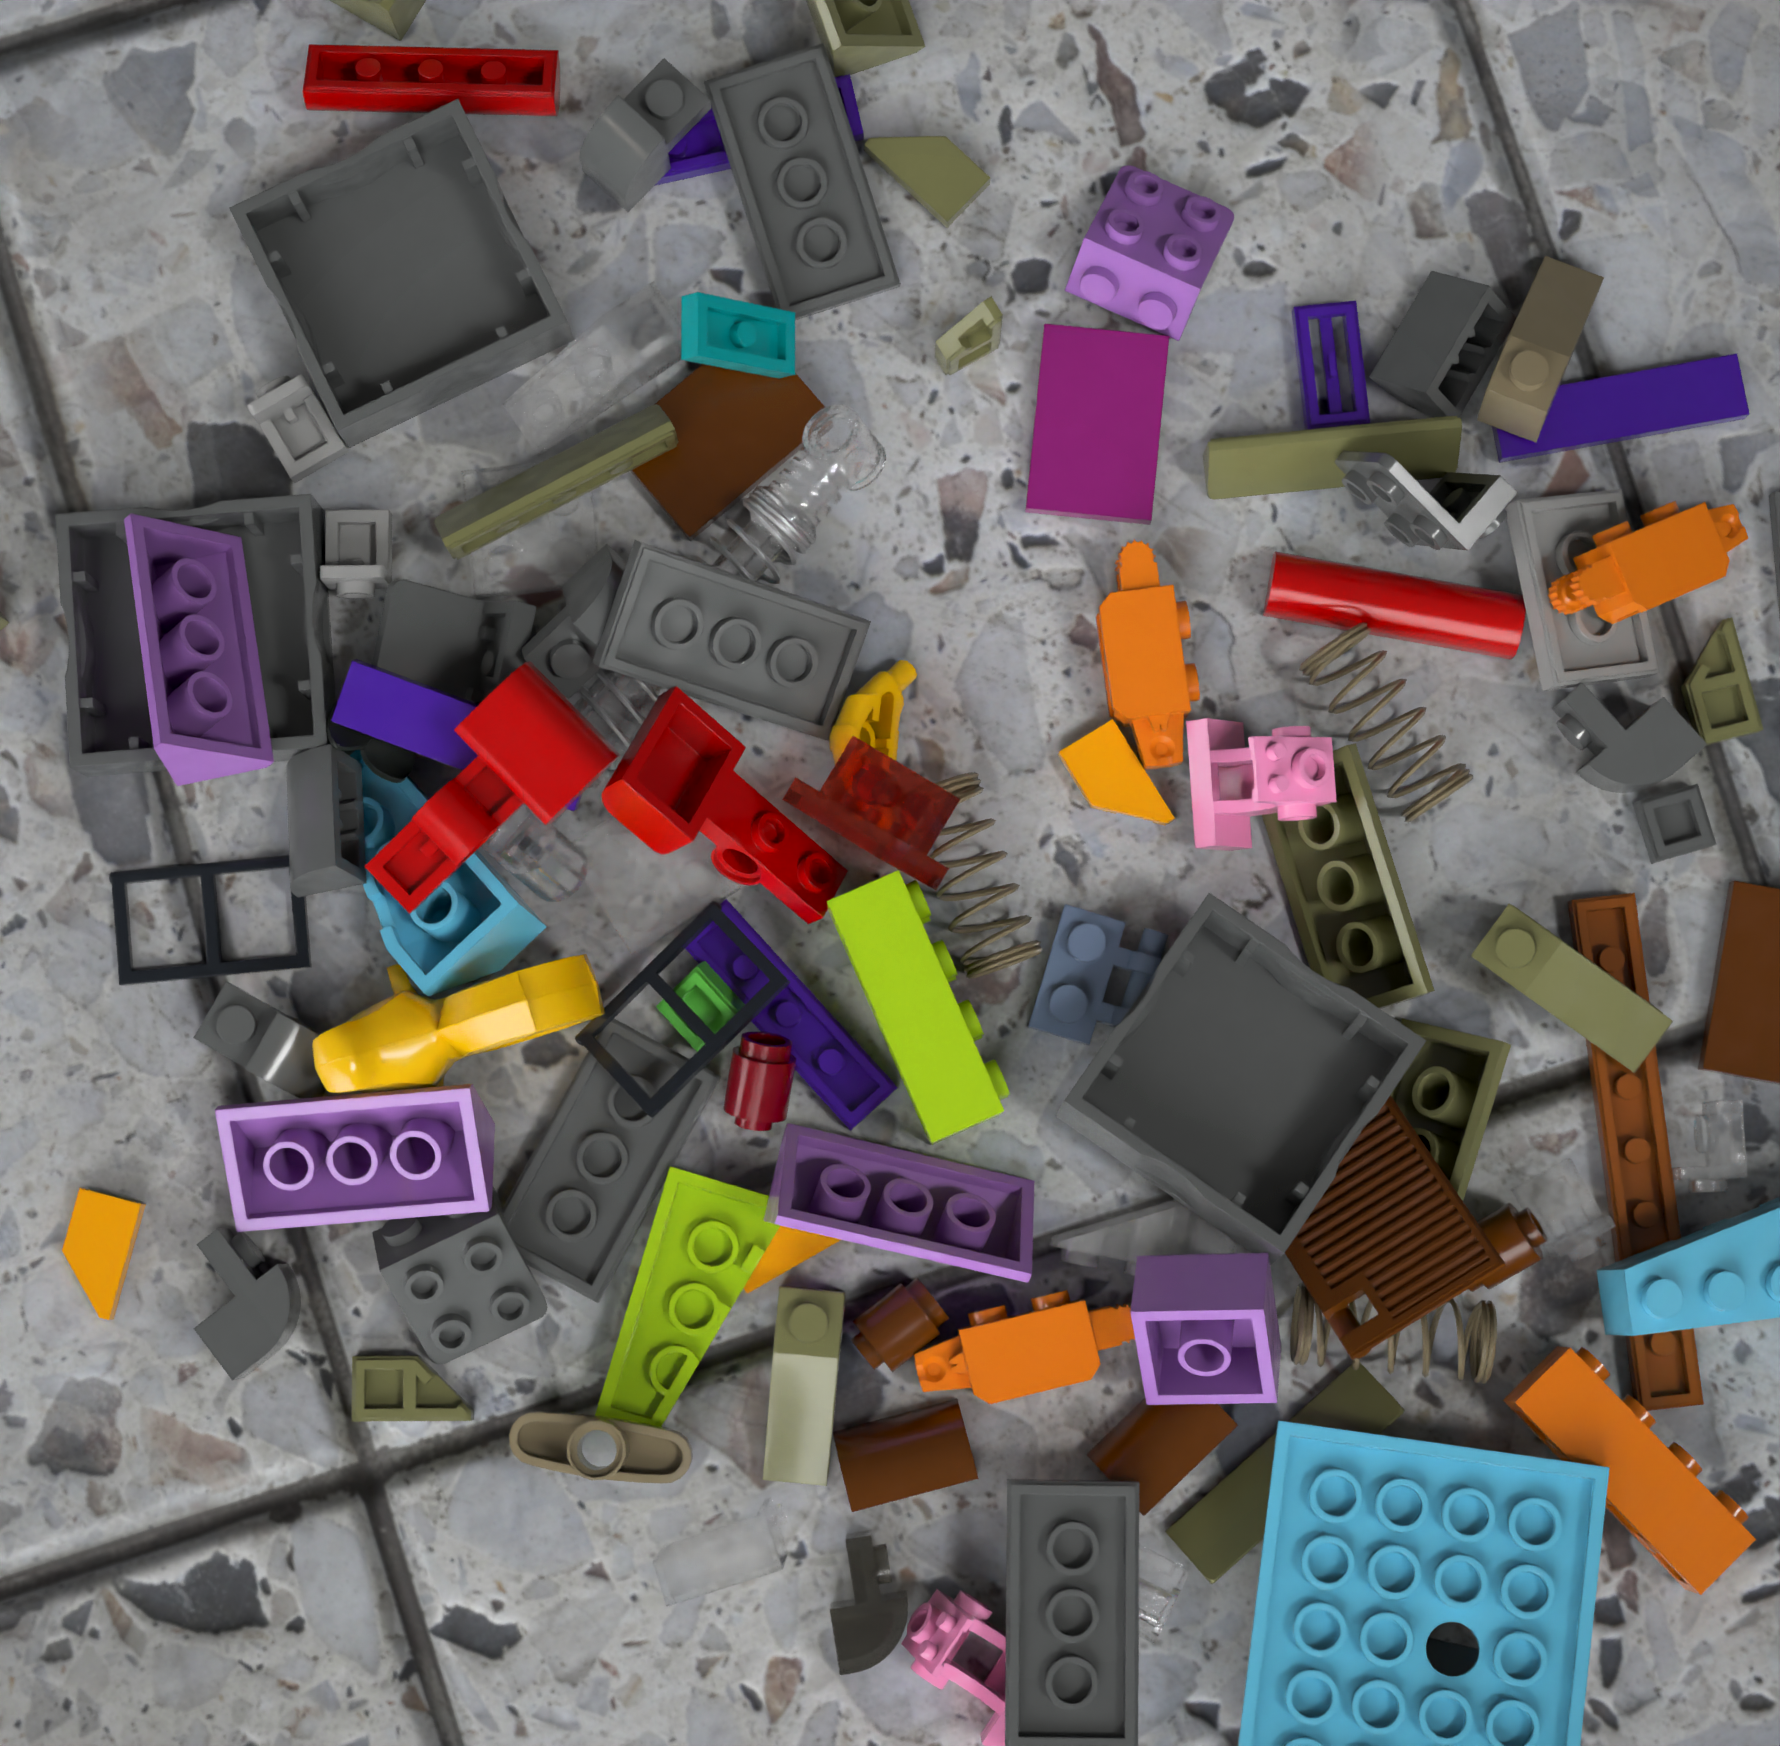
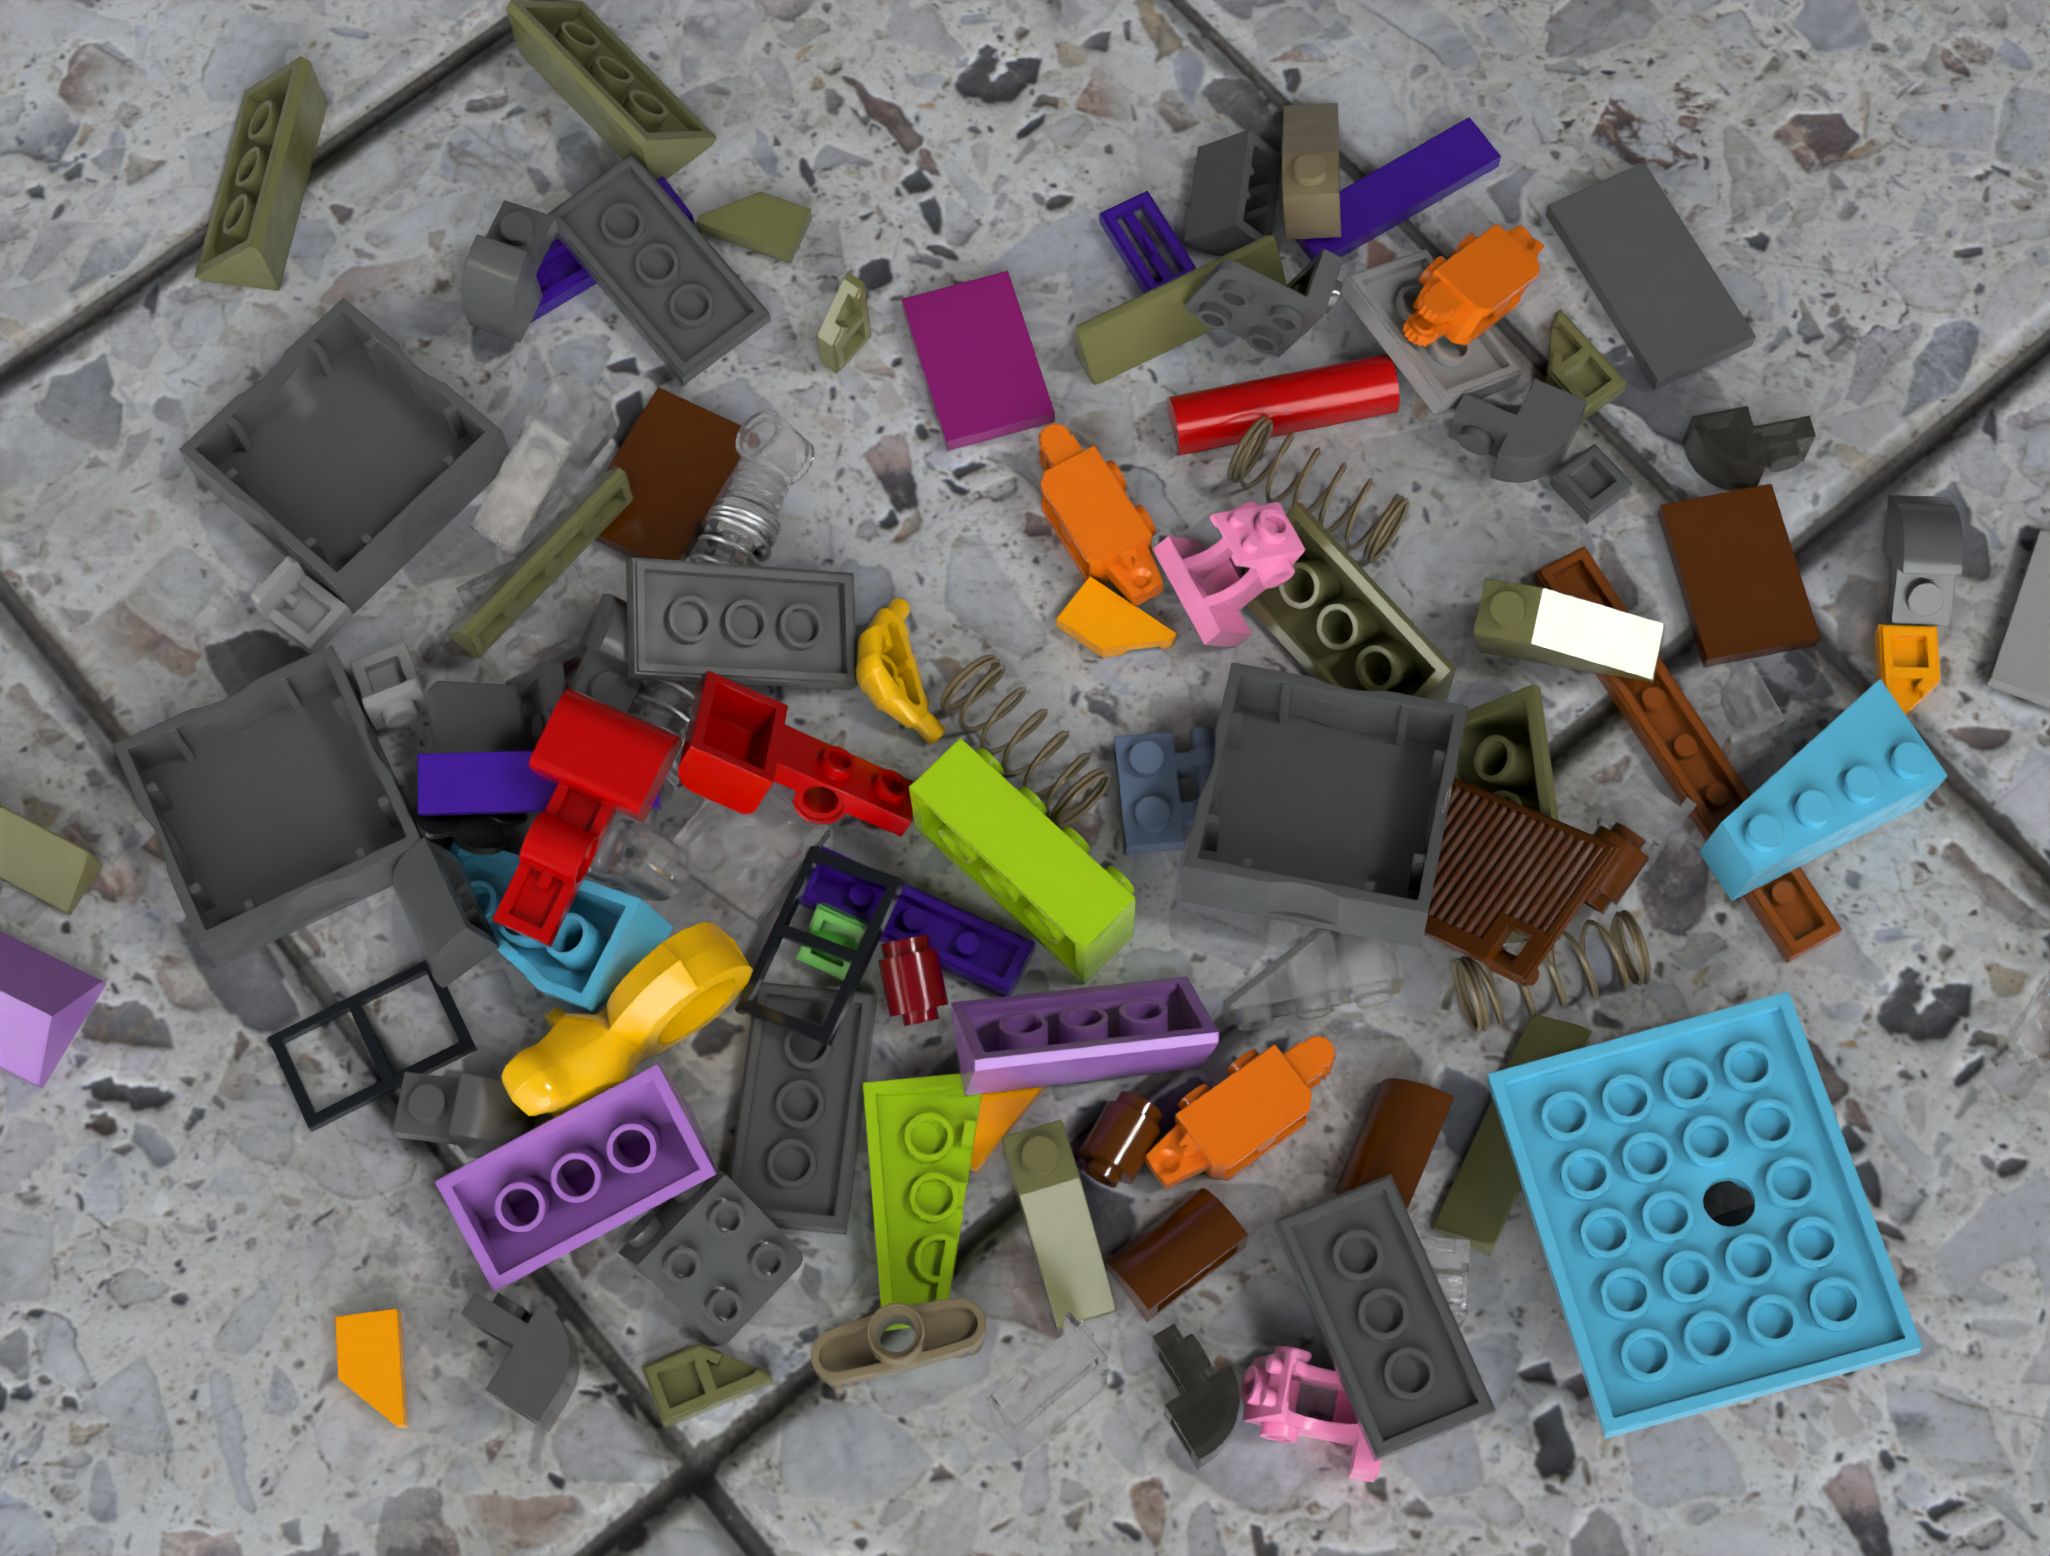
camera: 20 degrees left, 15 degrees down
(198, 650) = (281, 806): medium lavender slope -> none
(430, 77) = (293, 308): red brick -> none
(737, 335) = (650, 387): teal plate -> none
(880, 809) = (923, 704): clear red bracket -> none
(1149, 251) = (963, 217): medium lavender bracket -> none
(1206, 1328) = (1390, 1020): medium lavender brick -> none
(1649, 1485) = (1841, 1011): orange brick -> none

